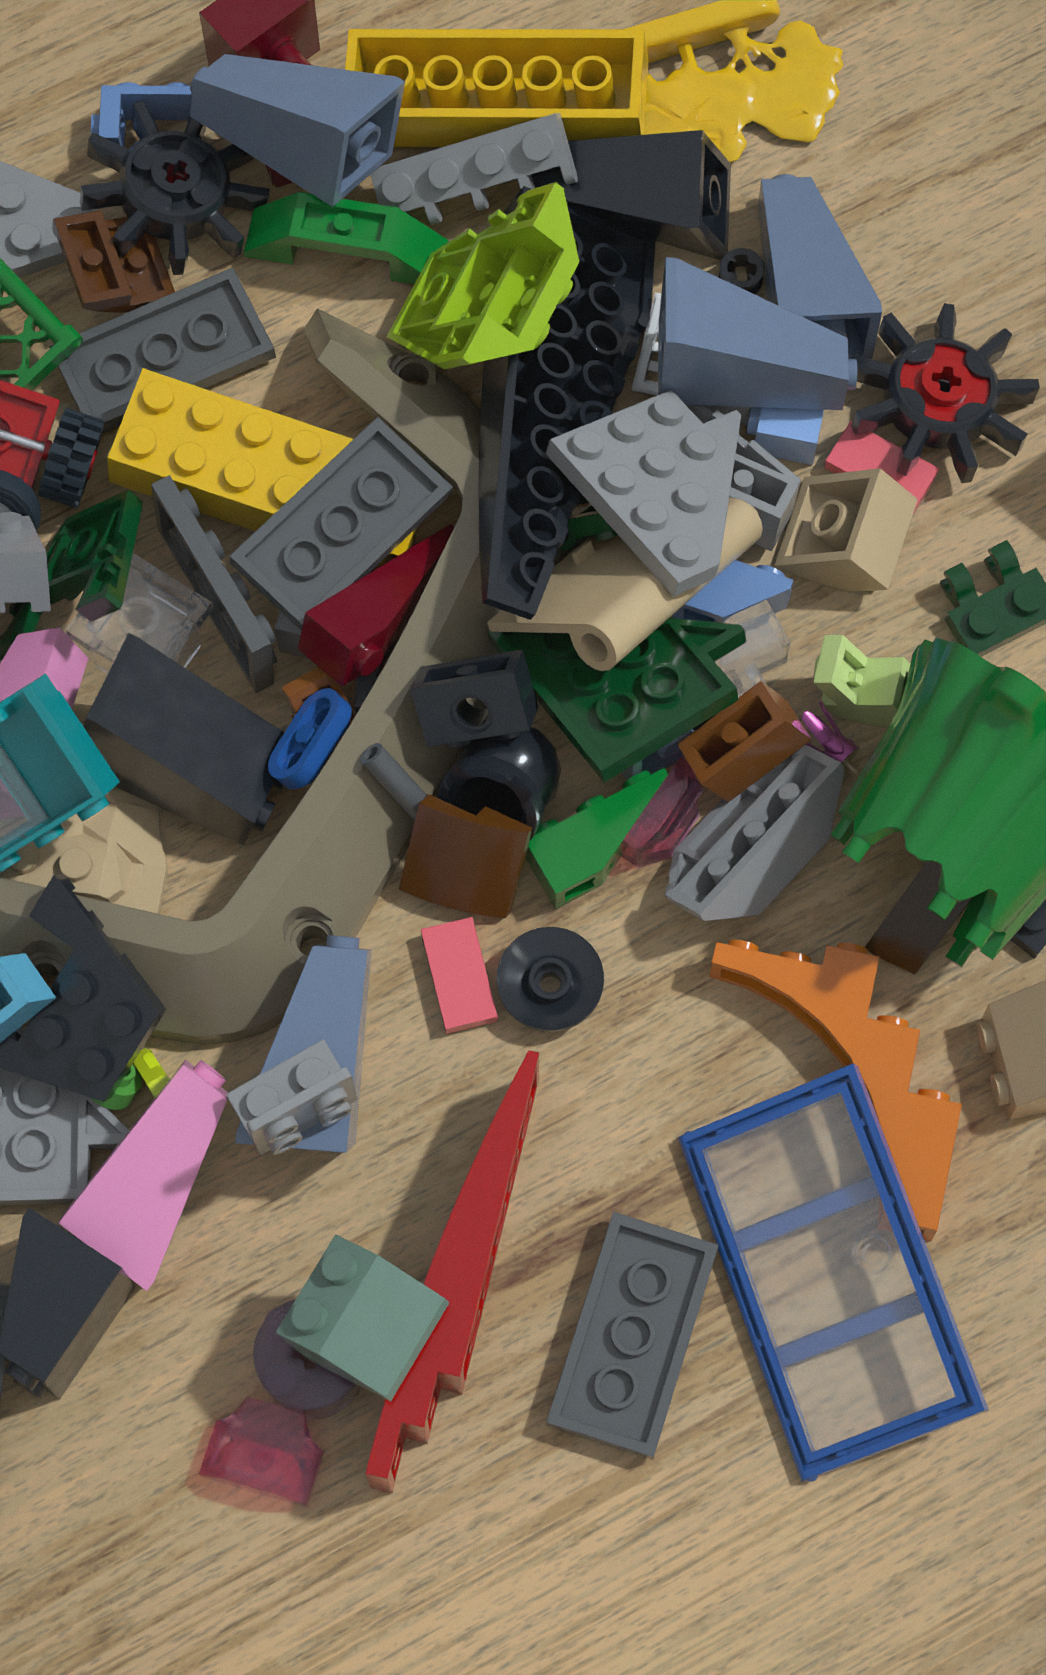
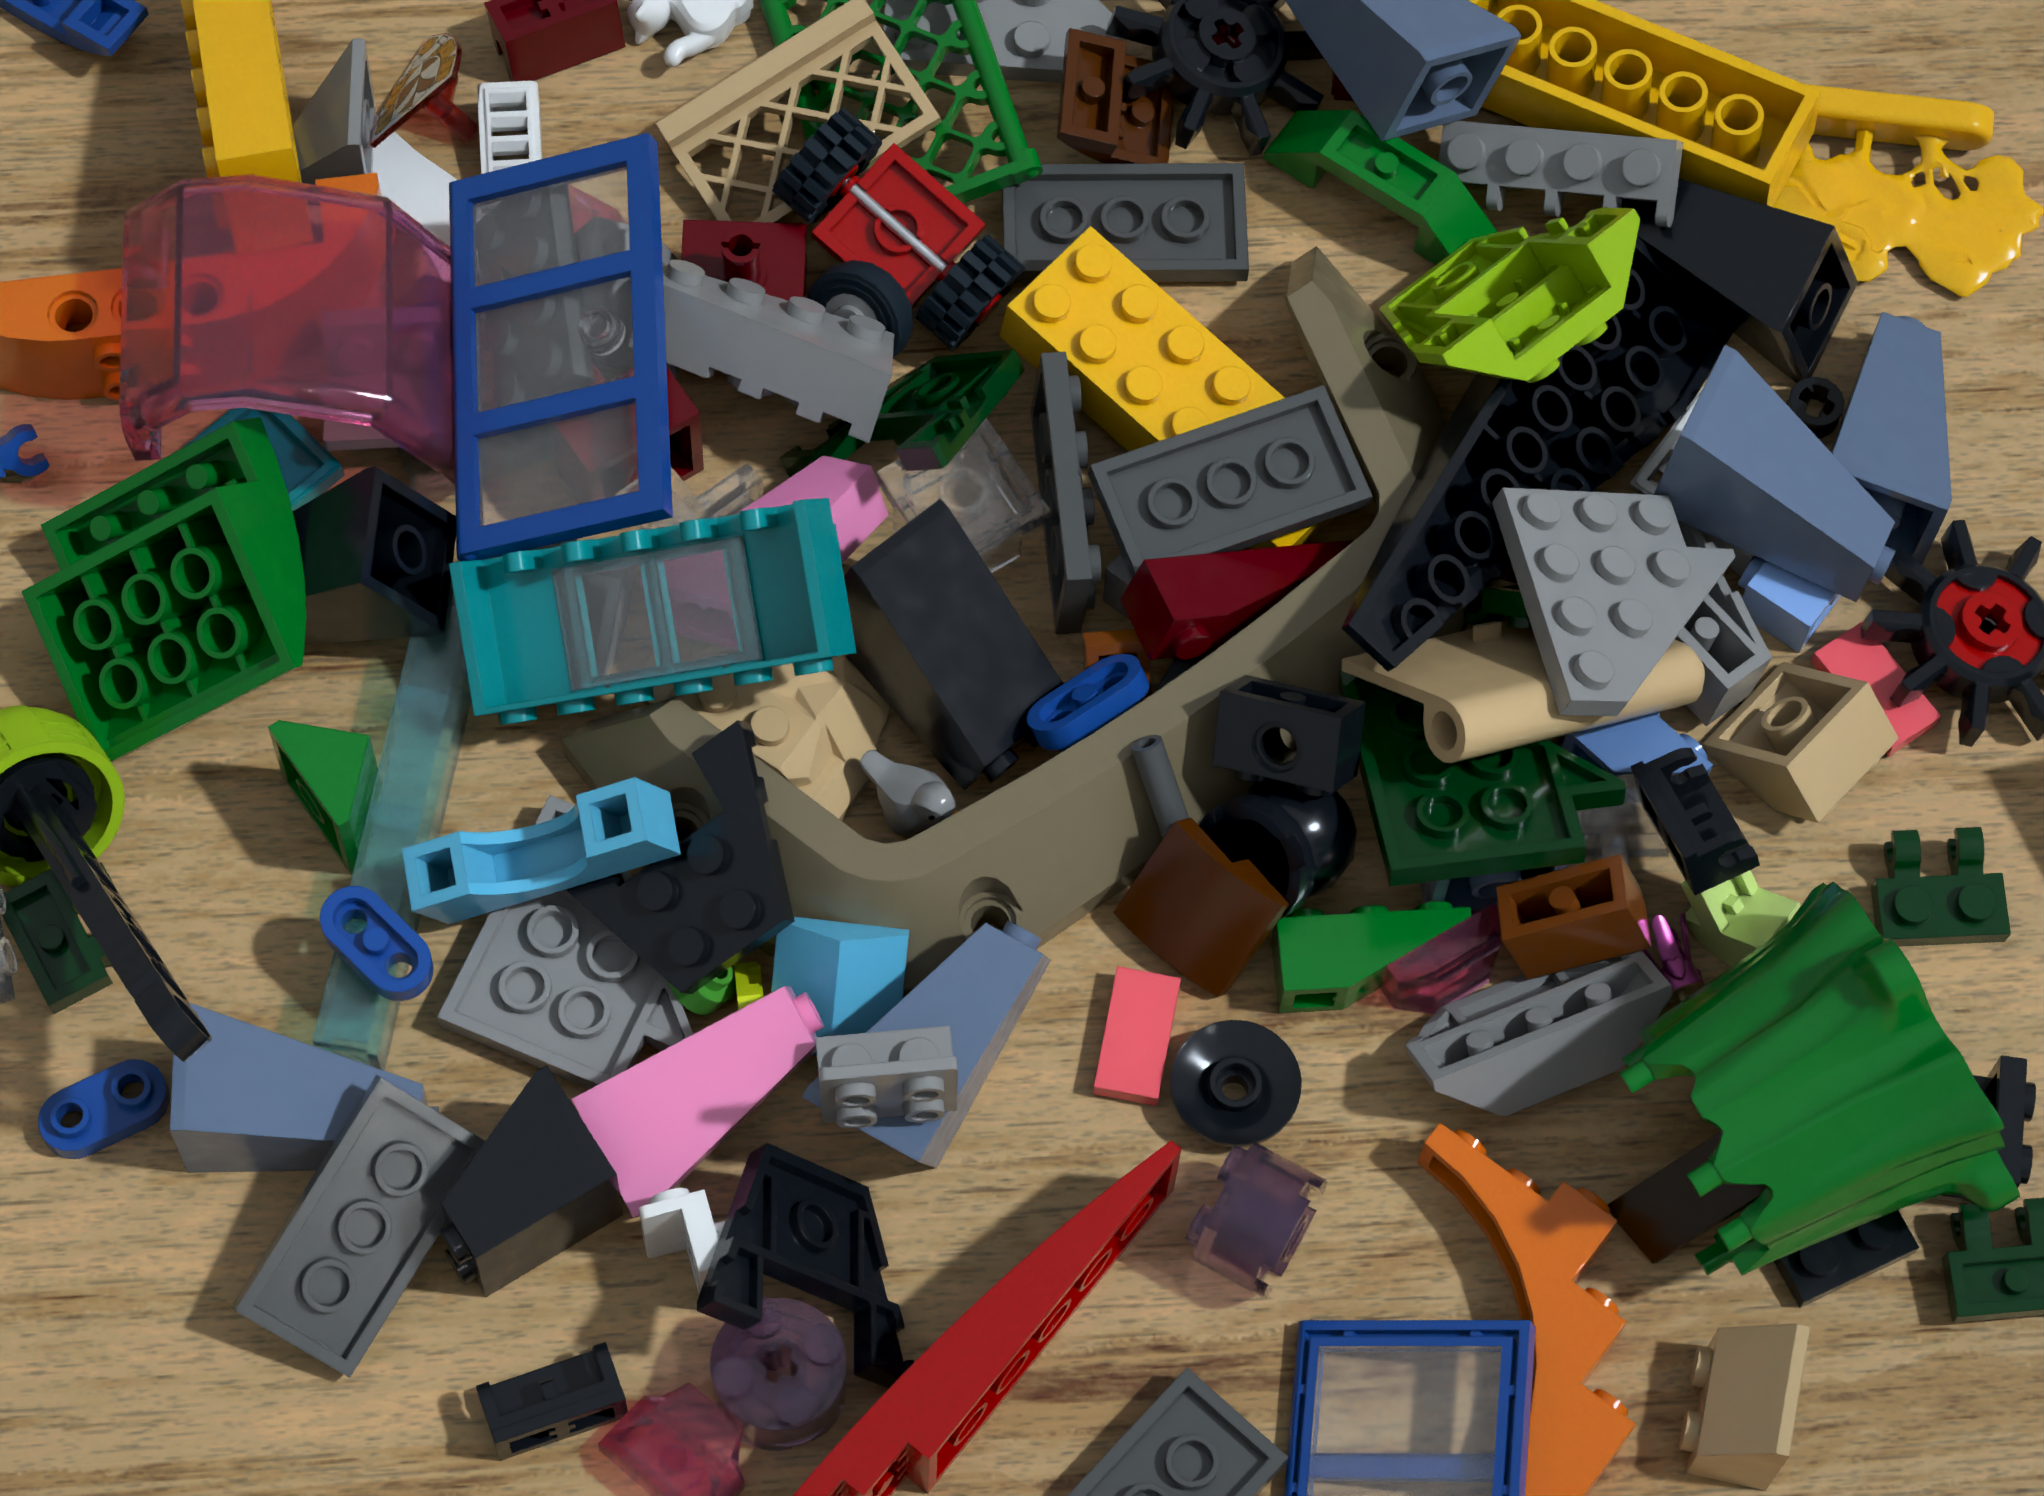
camera: 20 degrees right, 5 degrees down
(149, 1457) = (553, 1402): none -> black hinge
(205, 868) = (908, 794): none -> light grey animal
(216, 1287) = (680, 1222): none -> white bracket
(222, 1028) = (845, 968): none -> medium azure slope
(266, 1244) = (815, 1236): none -> black wing
(362, 1318) = (851, 1344): sand green slope -> none
(614, 1076) = (1255, 1217): none -> clear purple brick
(801, 630) = (1693, 820): none -> black hinge

